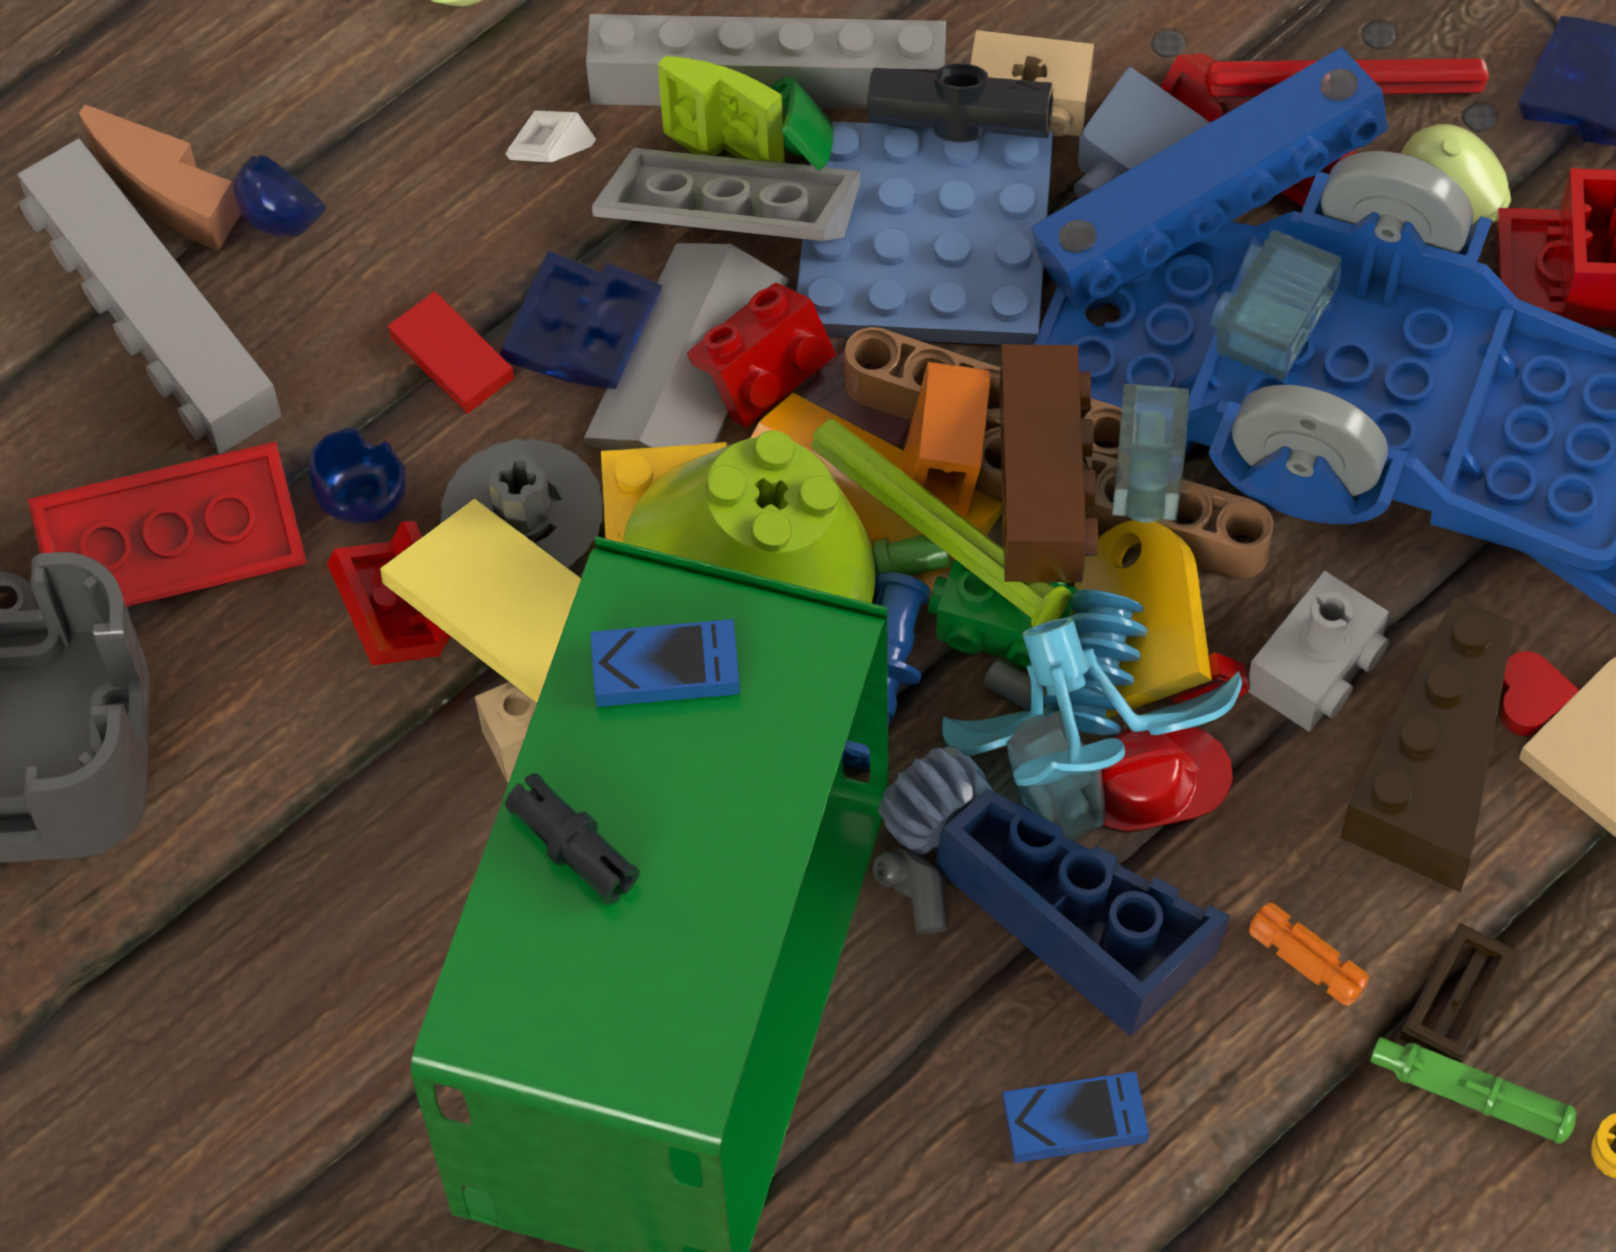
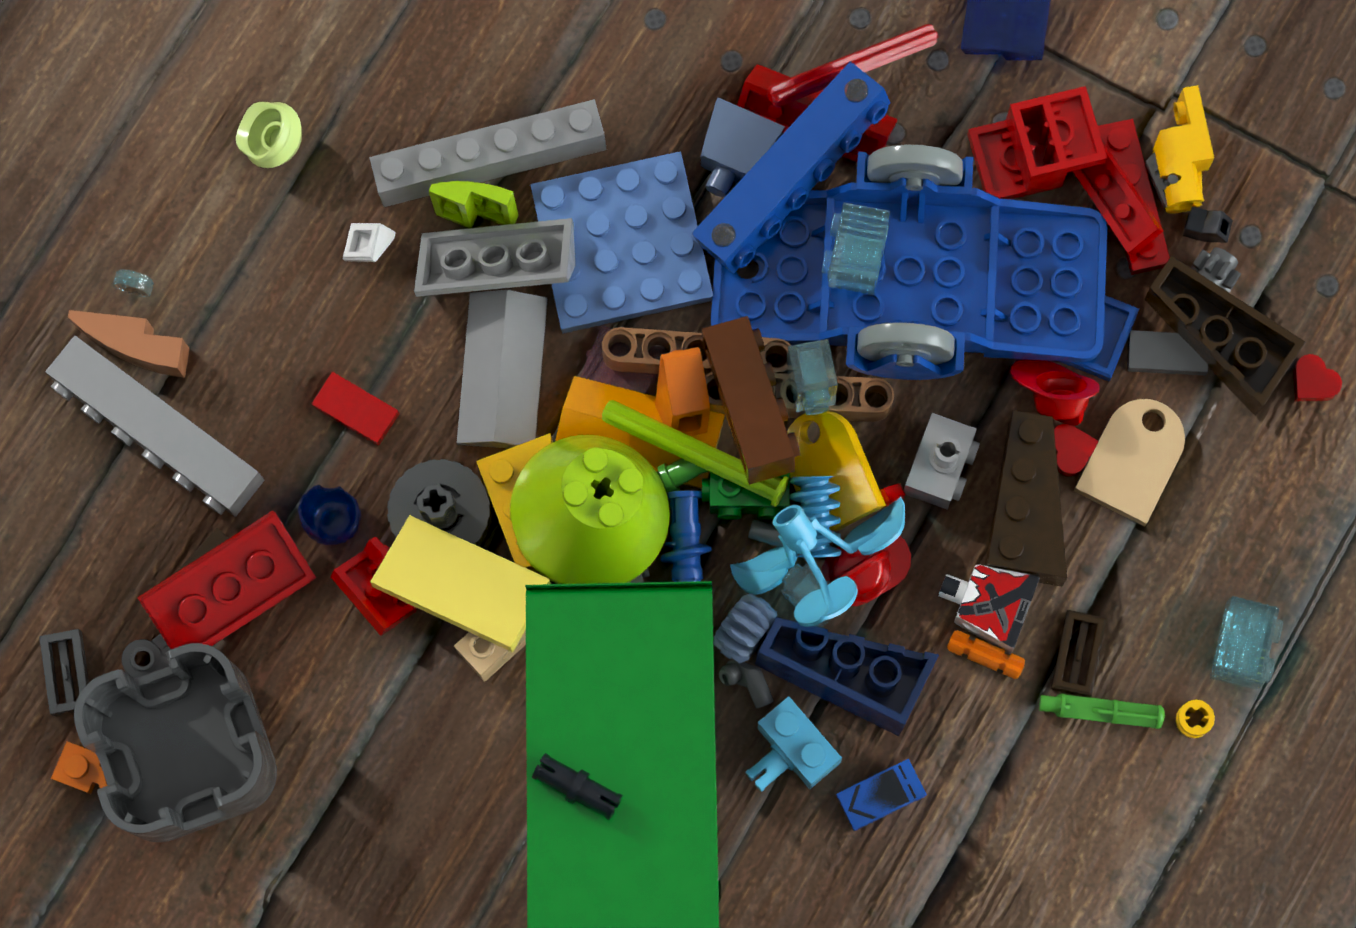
camera: 15 degrees left, 15 degrees up
(191, 102) = (133, 283): none -> clear light blue tile
(275, 199) = (212, 337): clear blue hair -> none
(580, 322) = (429, 365): clear blue slope -> none
(665, 663) = (594, 657): blue tile -> none
(763, 351) = (549, 357): red bracket -> none
(805, 125) = (528, 194): green panel -> none
(958, 996) = (794, 746): none -> medium azure brick
(960, 102) = (621, 155): black piece -> none
(1043, 60) = (674, 111): tan brick -> none
(1340, 875) = (992, 603): none -> torso
(1467, 163) = (934, 112): yellowish green hat -> none
(1536, 601) = (1056, 389): none -> red piece

